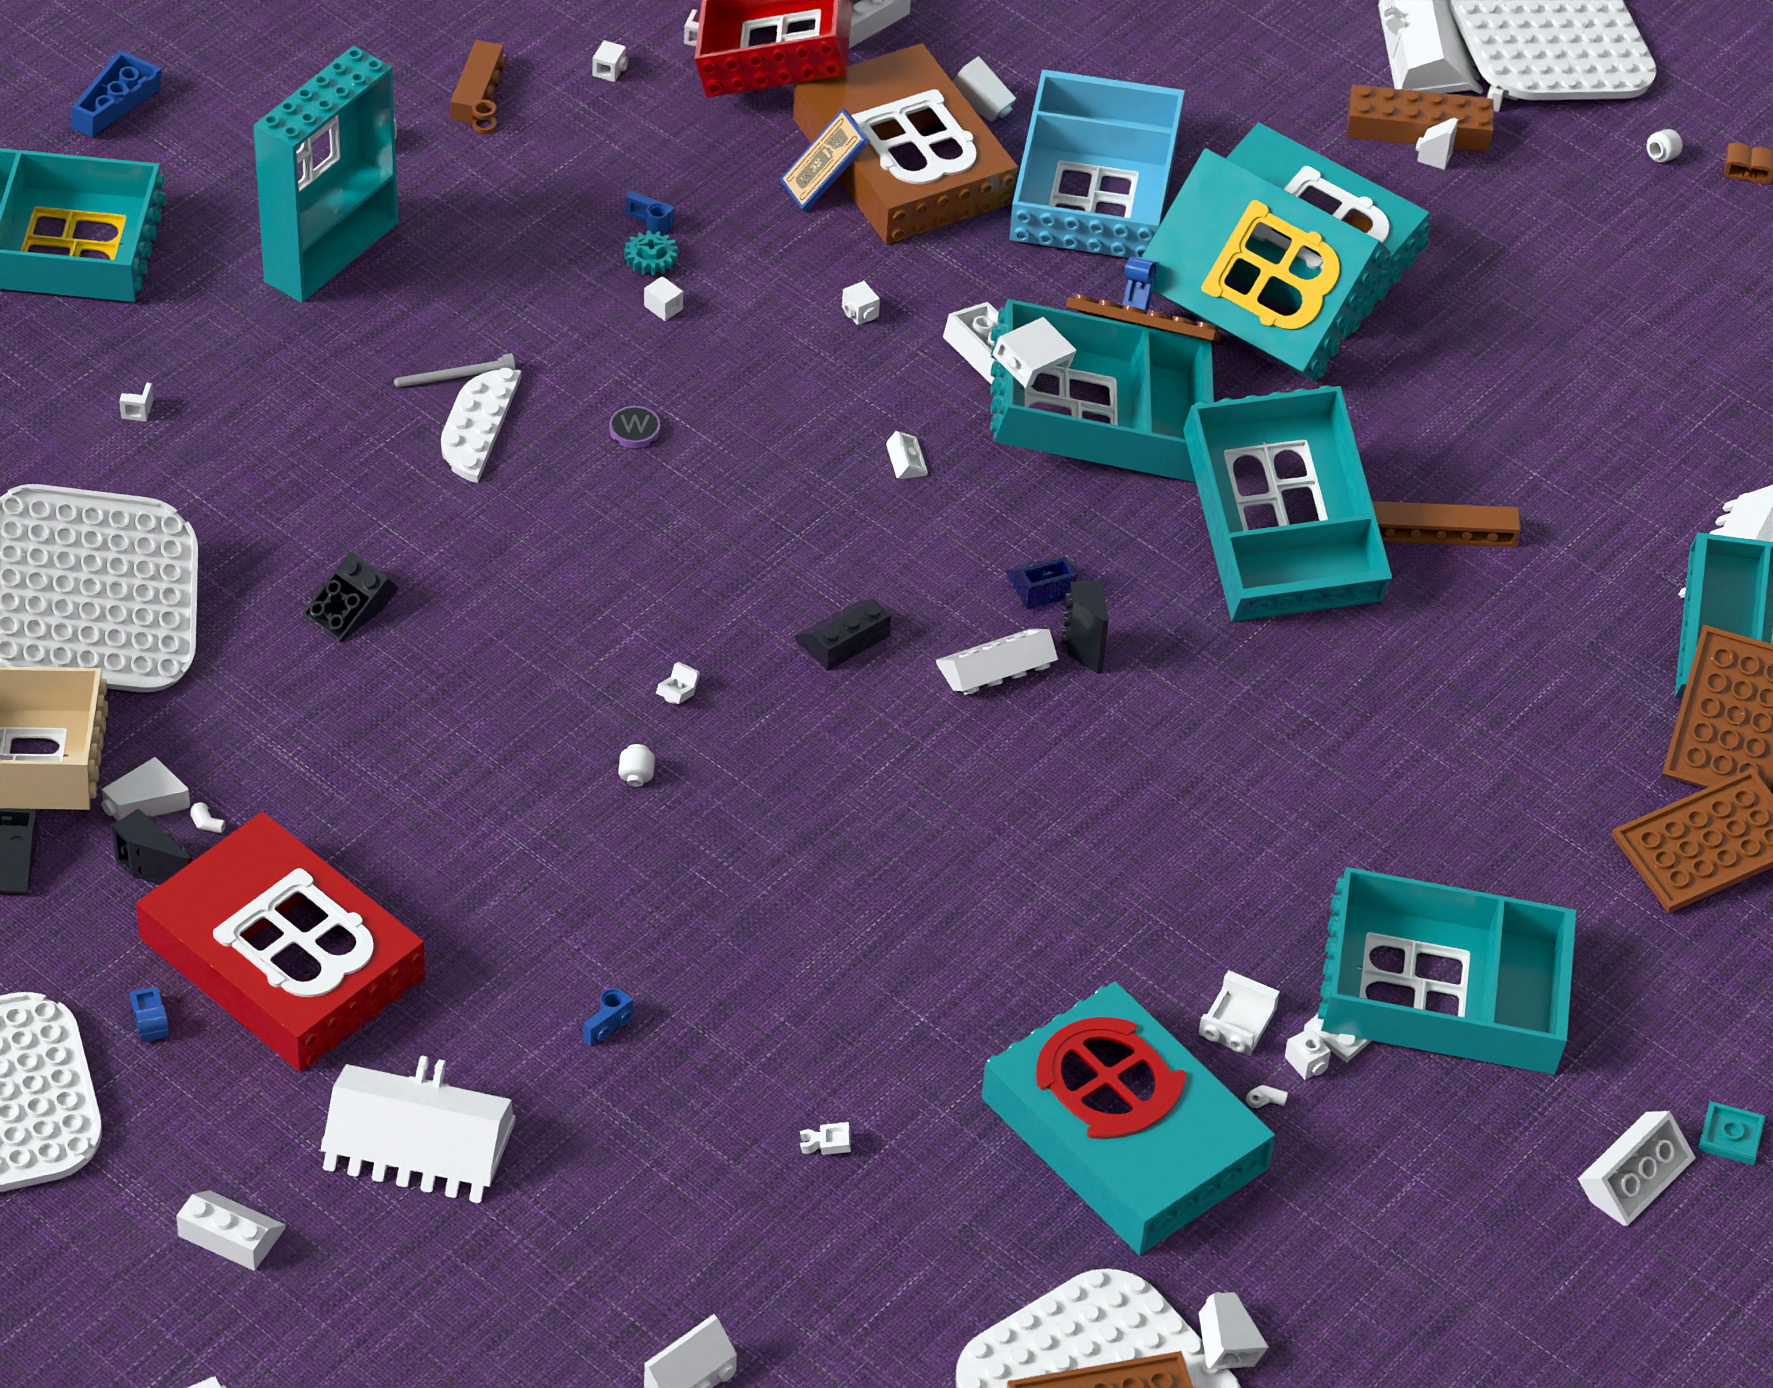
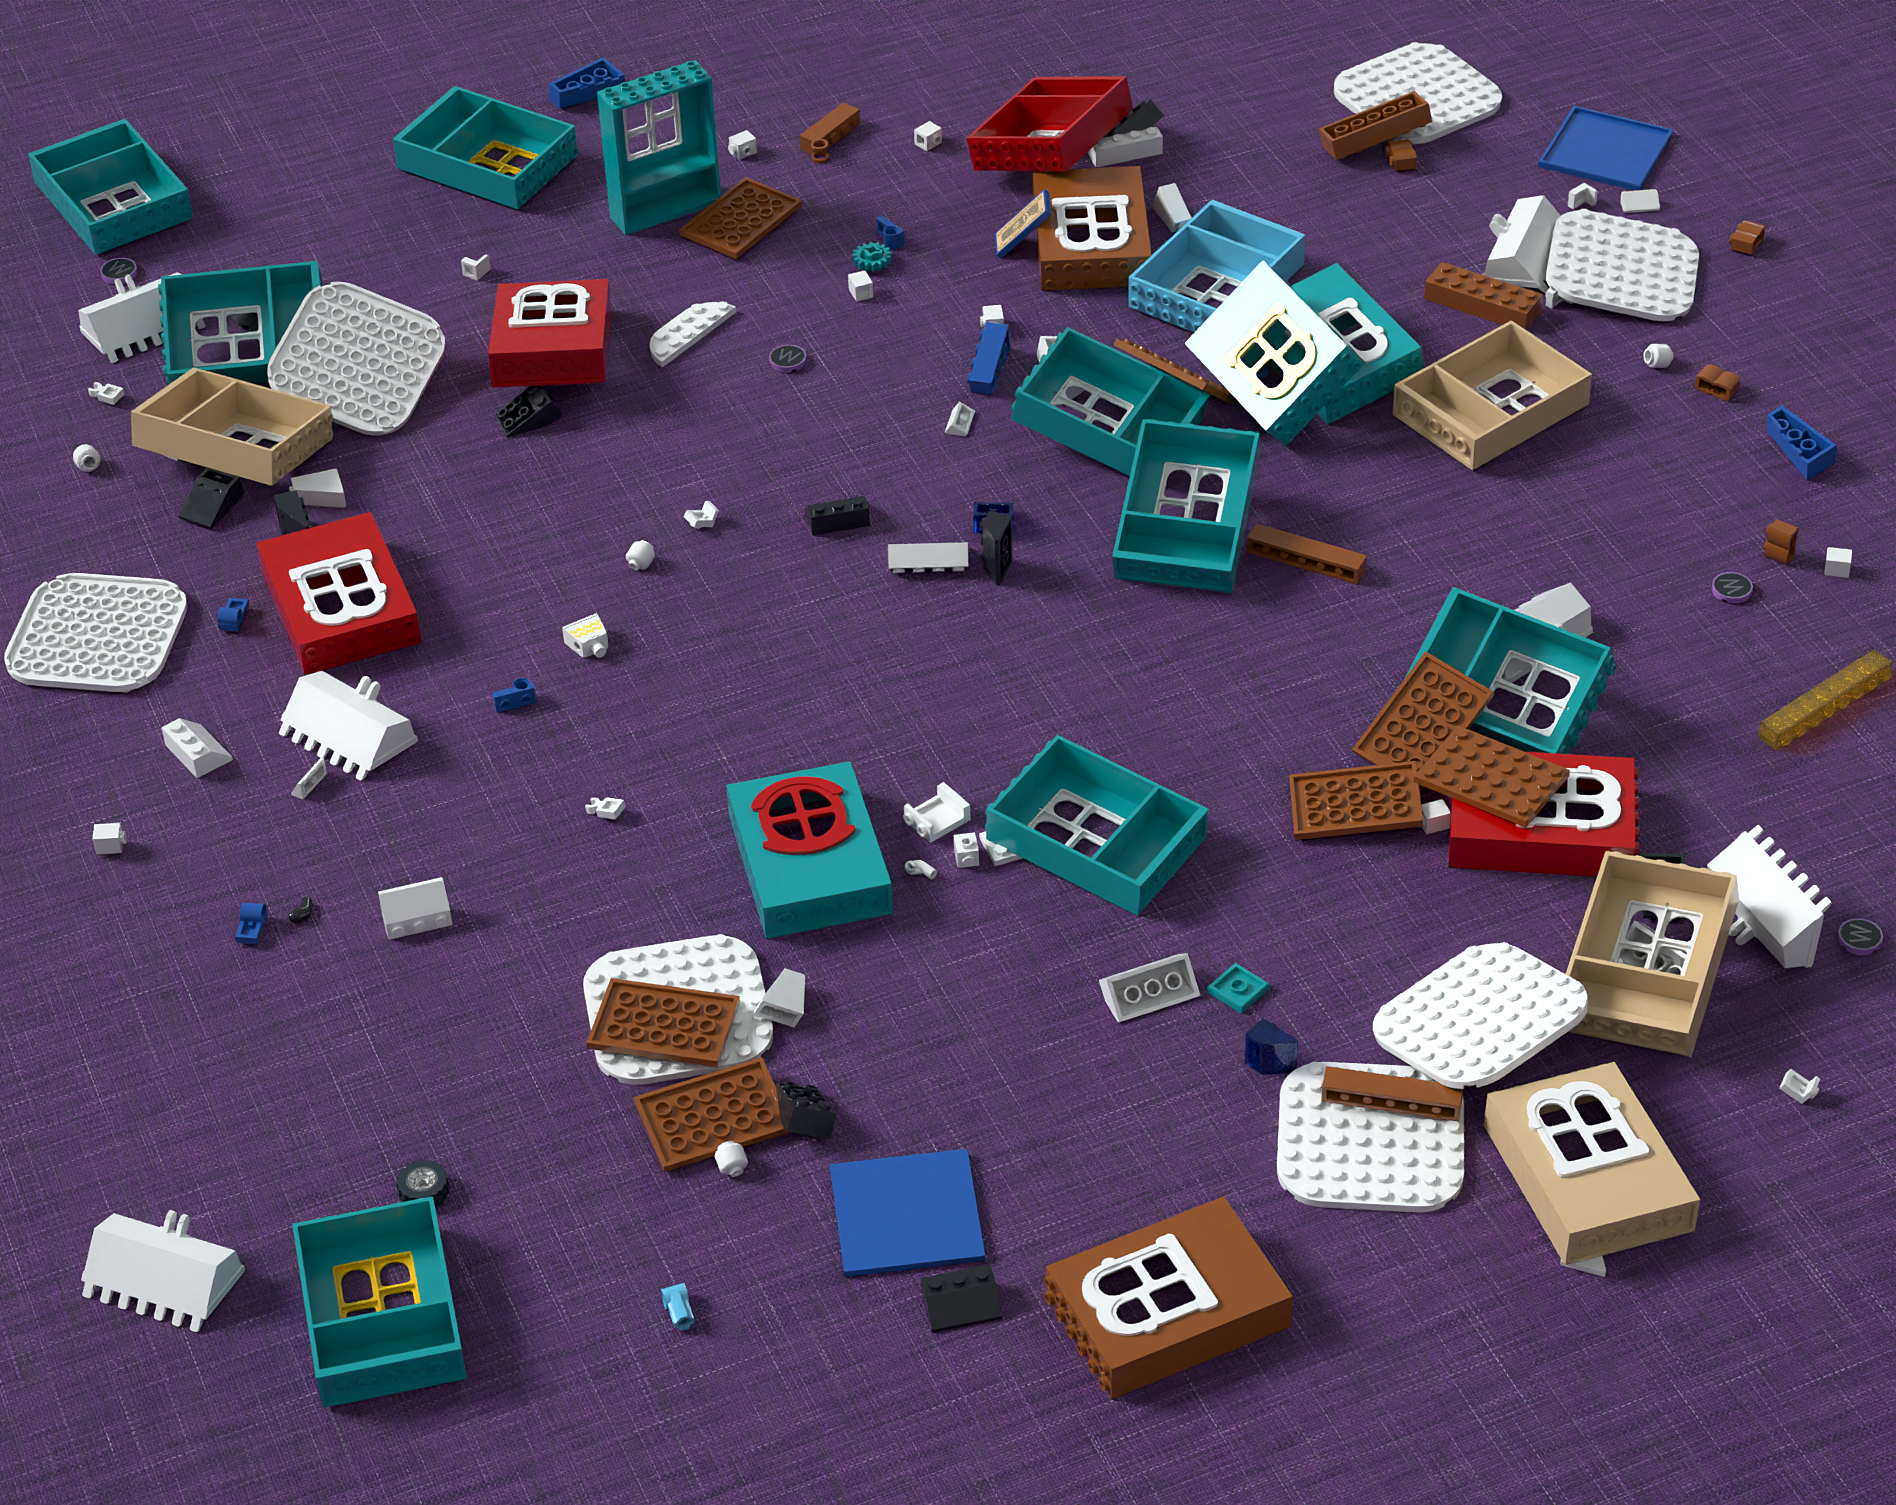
camera: 30 degrees right, 5 degrees down
(203, 819) = (345, 511): white arm -> none
(342, 505) = (550, 348): none -> red panel
(413, 1224) = (310, 780): none -> white slope
(443, 239) = (740, 217): none -> dark orange plate
(506, 361) = (728, 298): light grey piece -> none
(645, 903) = (586, 636): none -> white torso
(897, 360) = (989, 358): none -> blue wedge
(1033, 350) = (1058, 359): white panel -> none
(1141, 280) = (1188, 343): blue plate -> none
(1437, 144) = (1482, 316): white slope -> none
(1500, 286) = (1450, 412): none -> tan panel

